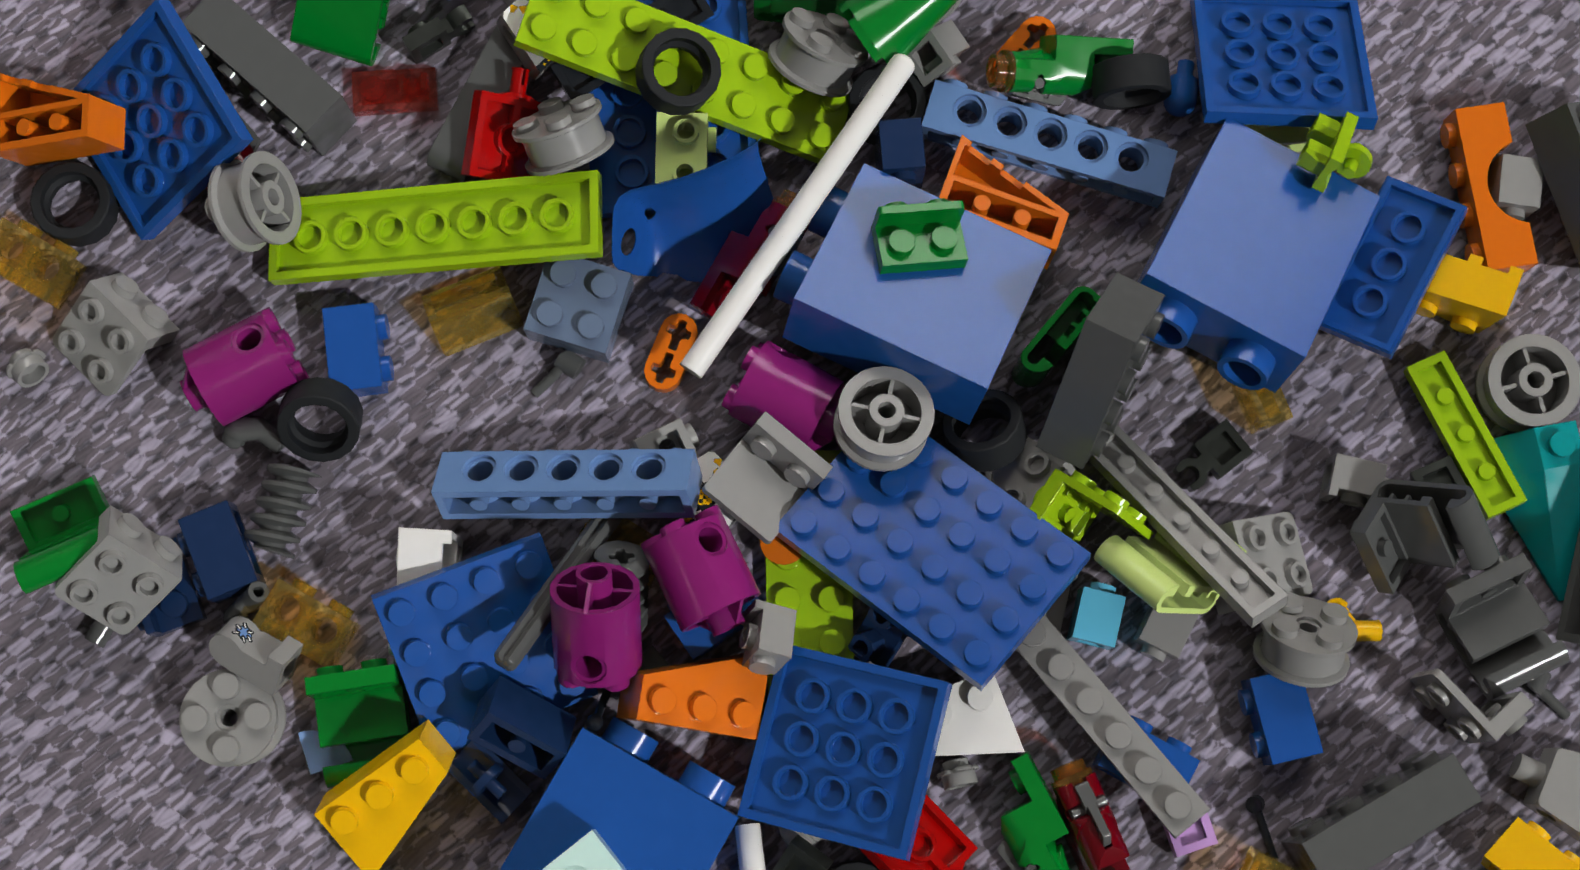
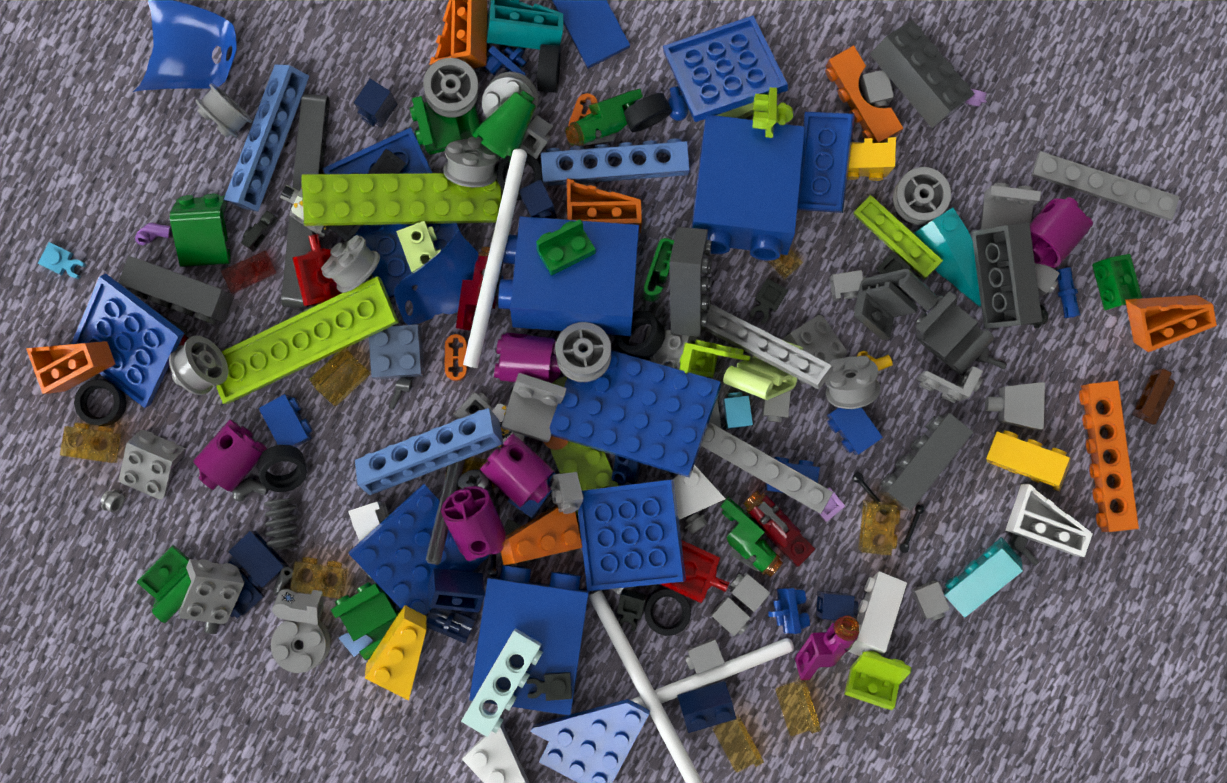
camera: 15 degrees left, 5 degrees up
(700, 49) = (407, 188): black tyre -> none

